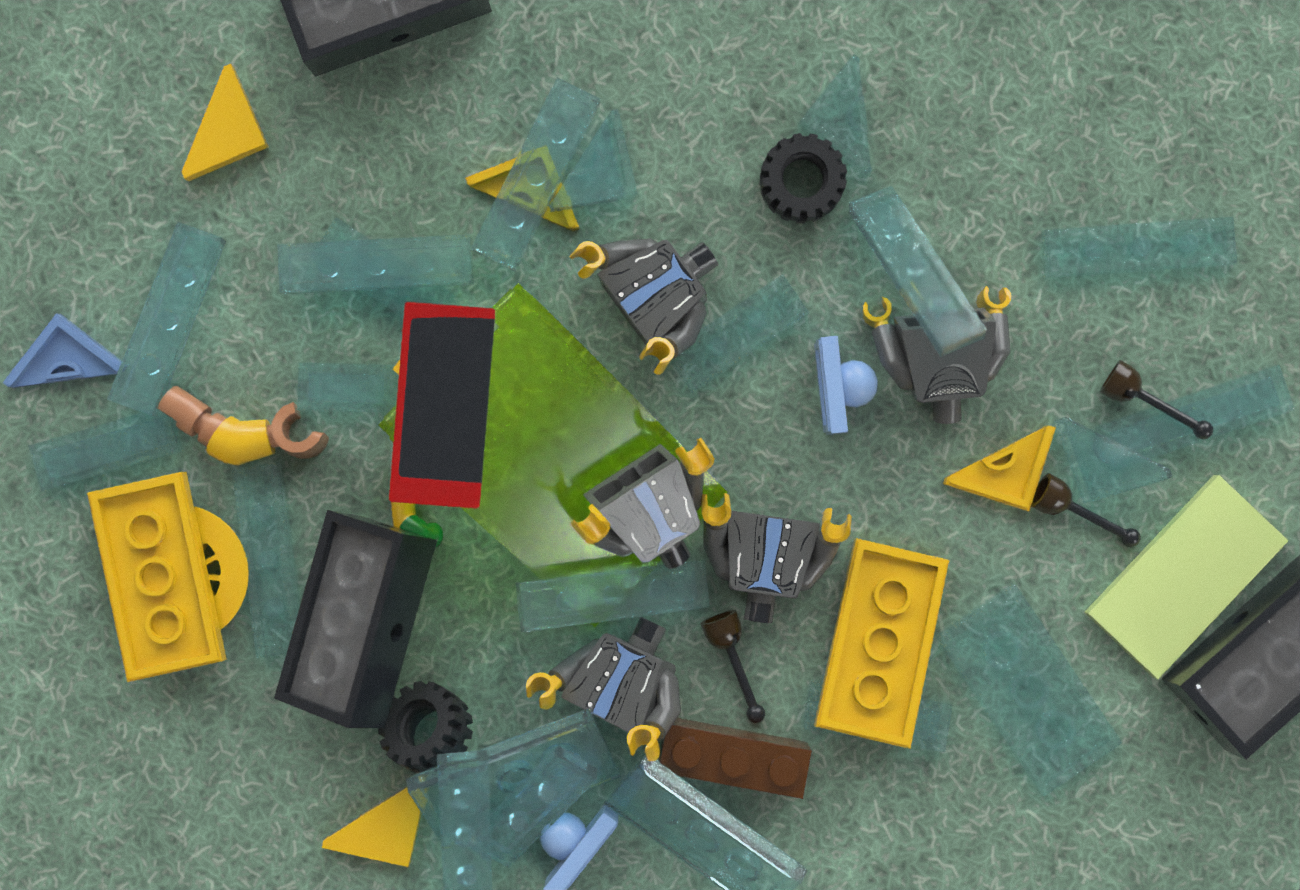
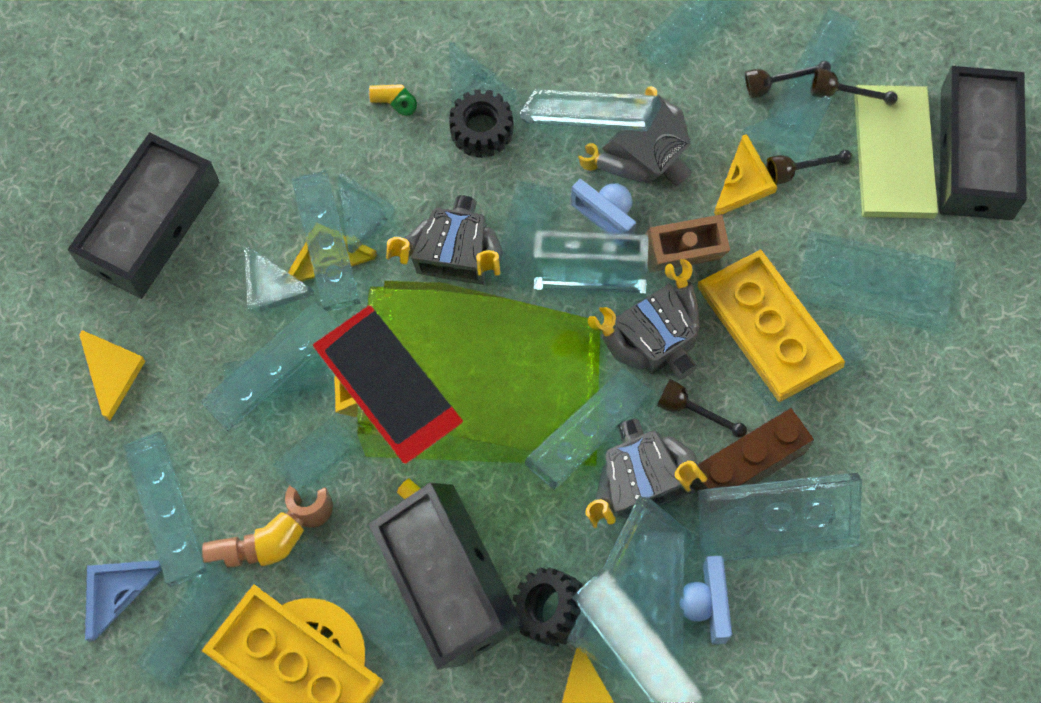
camera: 40 degrees left, 20 degrees down
(447, 170) = (269, 284): none -> clear light blue tile
(649, 506) = (563, 347): torso -> none
(747, 68) = (396, 96): none -> arm
(767, 431) = (590, 262): none -> clear light blue brick
(876, 495) = (690, 240): none -> medium nougat brick
(1184, 452) = (826, 84): none -> hinge

